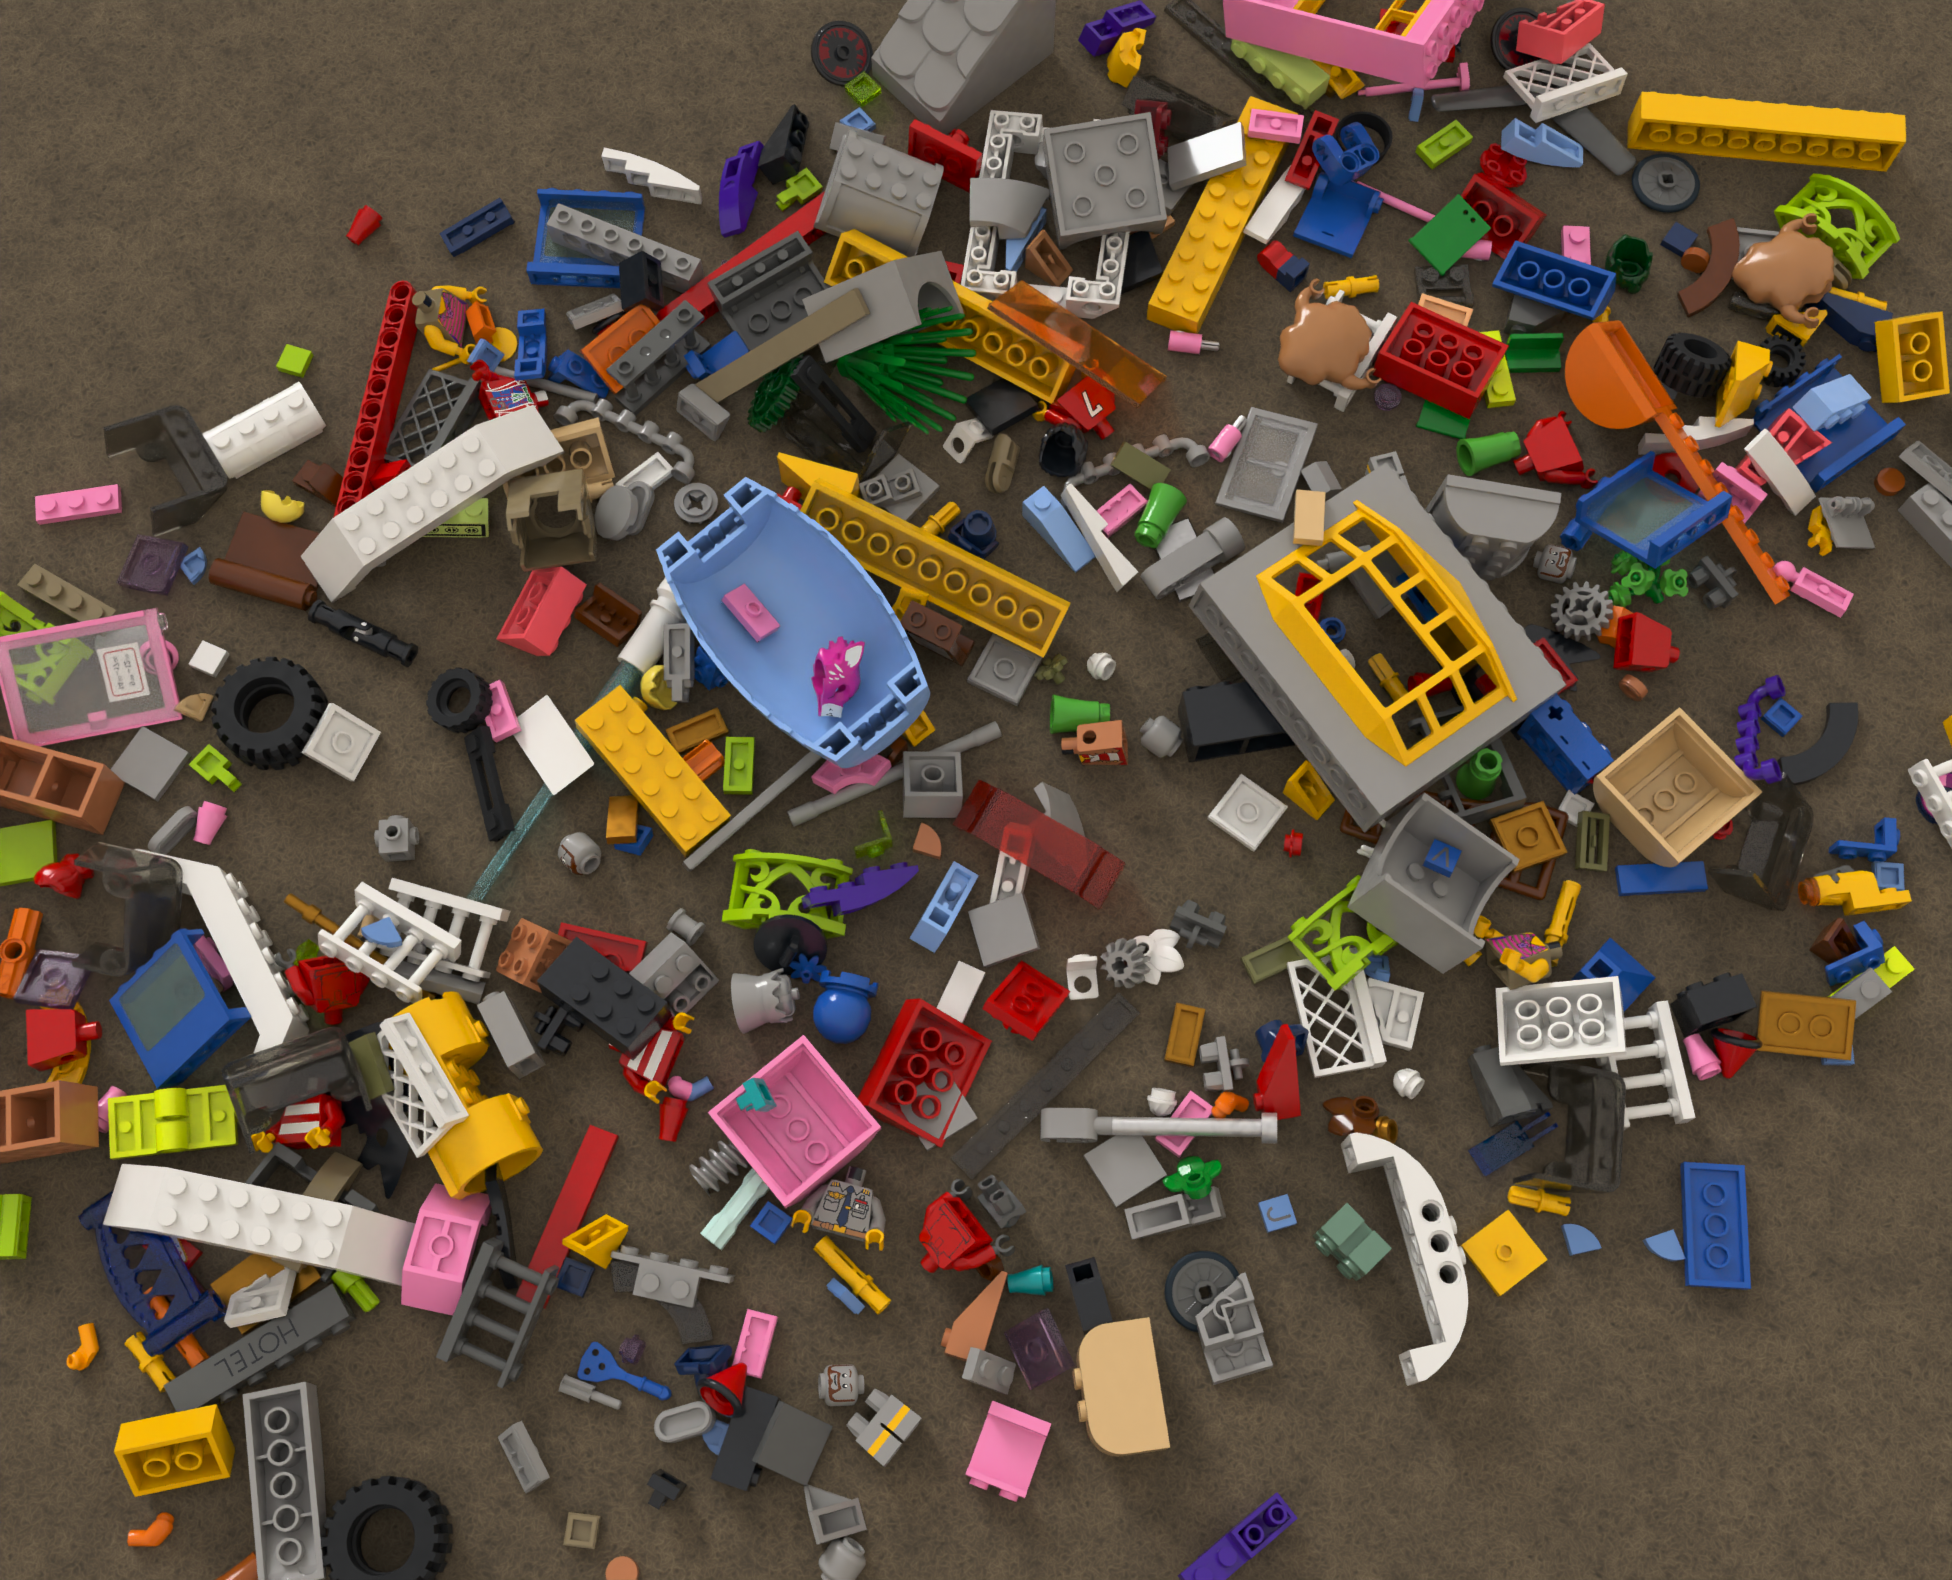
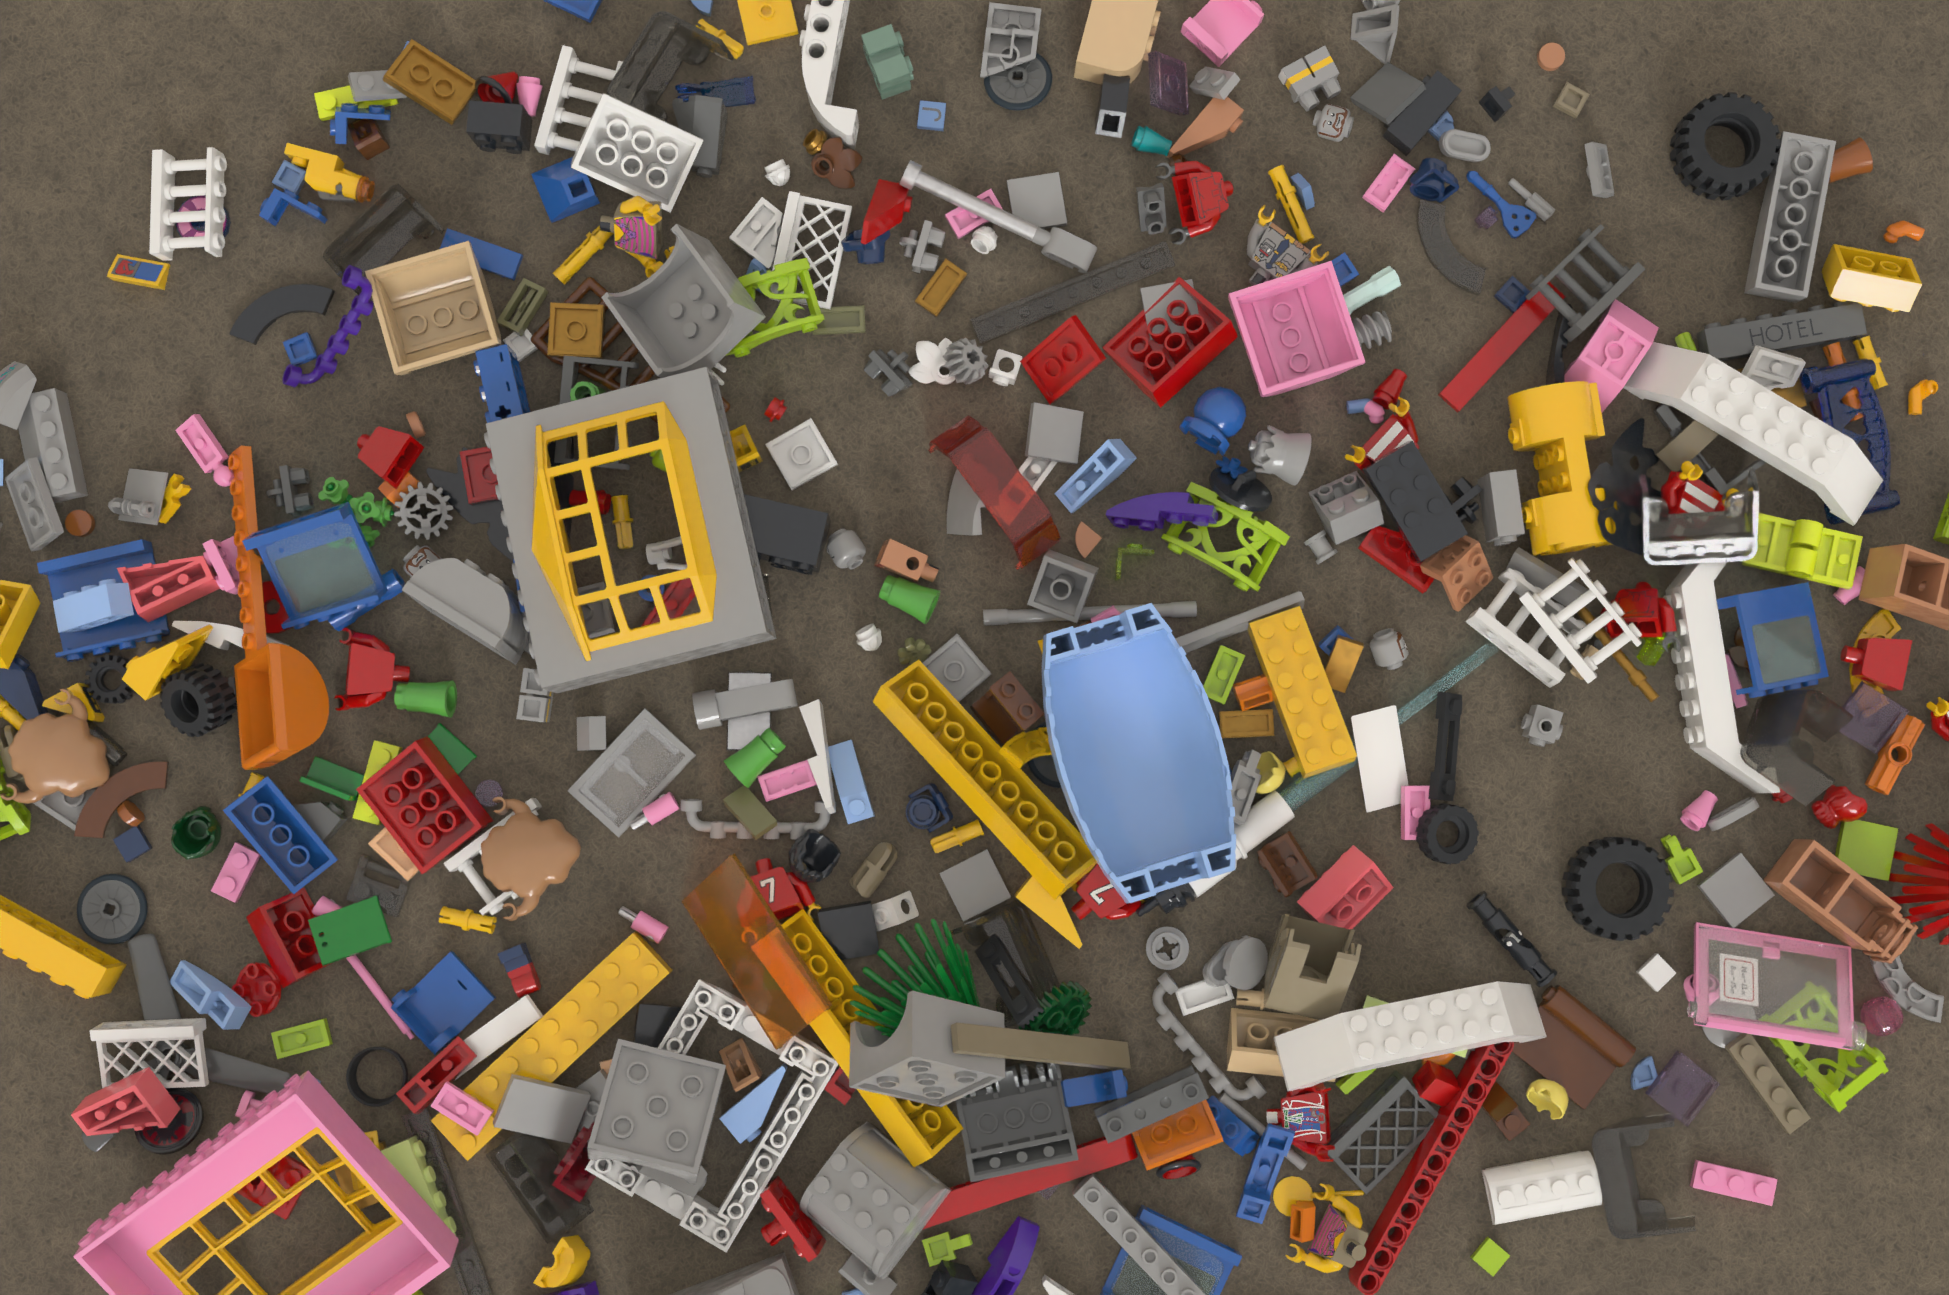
camera: 160 degrees left, 15 degrees up
(194, 706) = (1681, 929): tan tile -> none
(341, 742) = (1563, 835): white tile -> none
(372, 1065) = (1630, 508): olive tile -> none
(382, 933) = (1585, 626): medium blue tile -> none
(424, 1078) = (1590, 473): white fence -> none
(487, 353) = (1310, 1180): medium blue tile -> none
(594, 311) = (1191, 1185): light grey tile -> none
(597, 1240) = (1486, 311): yellow slope -> none
(641, 282) = (1140, 1186): black panel -> none
(668, 1279) = (1437, 259): light grey bracket -> none
(702, 411) = (1127, 1039): light grey slope -> none
(724, 1390) = (1425, 148): red hat -> none
(750, 612) = (1163, 801): bright pink plate -> none
(756, 1096) = (1322, 353): teal tile -> none
(836, 669) = (1111, 704): dark pink piece -> none
(891, 490) = (986, 884): light grey slope -> none
(961, 991) = (1112, 397): white tile -> none
(1006, 204) = (760, 1131): light grey slope -> none
(1174, 1214) = (1013, 147): light grey slope -> none
(1193, 1177) = (987, 169): green plate -> none
(1227, 1103) = (934, 212): orange arm -> none
(1309, 517) = (639, 656): tan tile -> none
(1350, 164) = (389, 1058): blue piece -> none
(1442, 858) = (663, 329): blue tile -> none
(1779, 471) = (182, 555): white slope -> none

